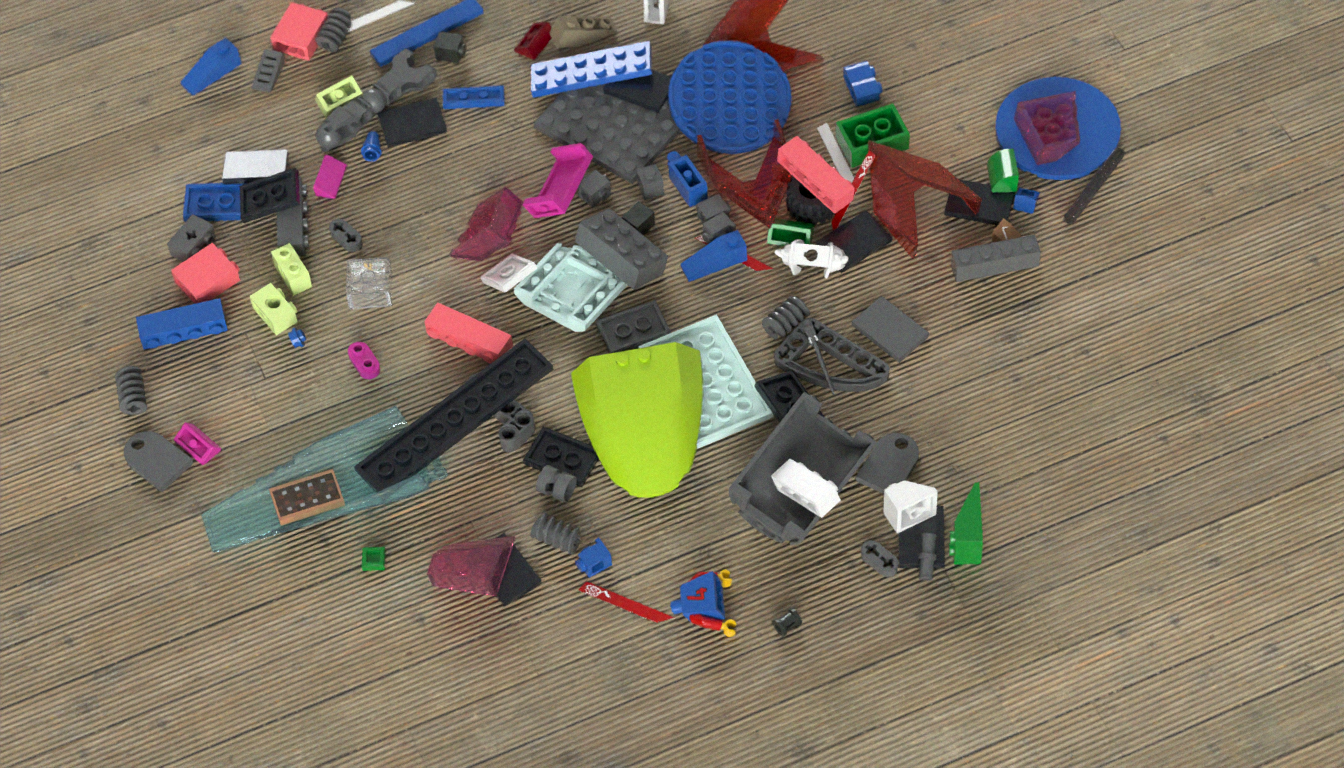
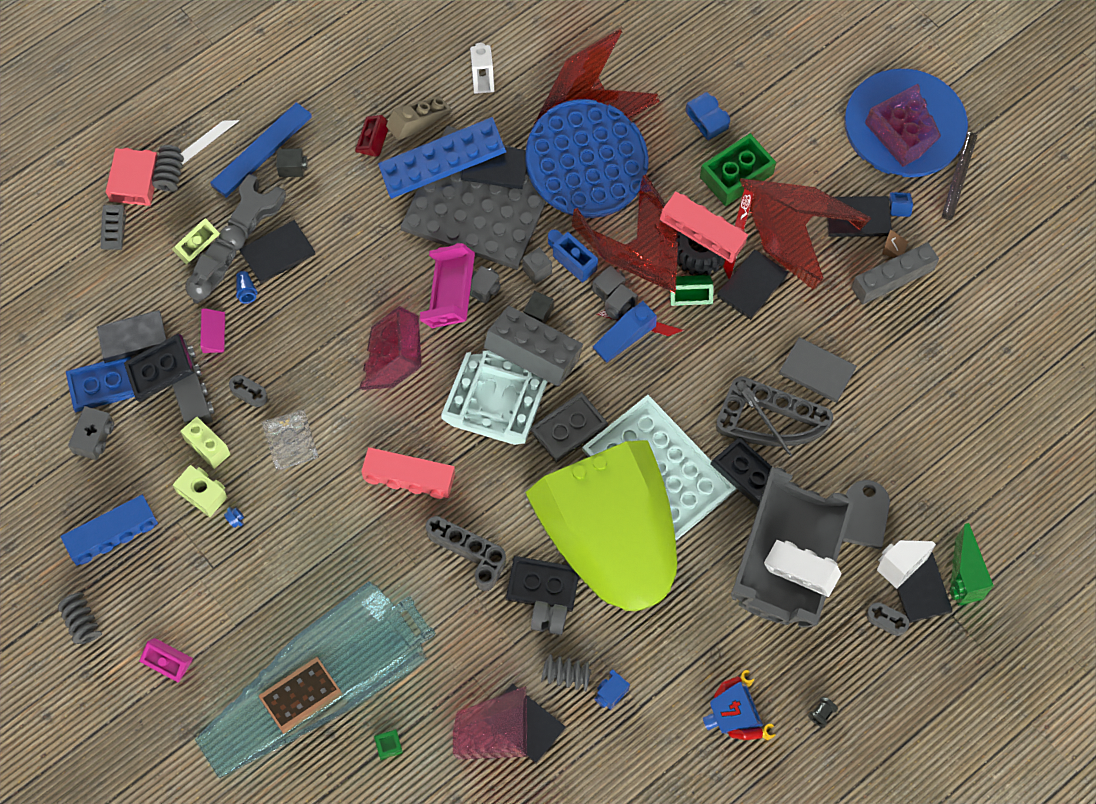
camera: 20 degrees left, 10 degrees up
(157, 460) = (129, 689): dark grey tile -> none
(206, 274) = (118, 468): coral brick -> none
(213, 65) = (53, 234): blue slope -> none
(362, 359) = (309, 524): dark pink plate -> none
(454, 417) = (426, 575): black plate -> none
(473, 97) = (330, 210): blue tile -> none
(508, 272) = (428, 396): white tile -> none
(624, 603) = (654, 729): red sticker -> none
(785, 317) = (715, 381): dark grey piece -> none
(828, 256) = (738, 309): white piece -> none
(835, 152) = (704, 194): white sticker -> none
(927, 556) = (936, 608): dark grey pin -> none
(1003, 171) = (873, 180): green brick -> none

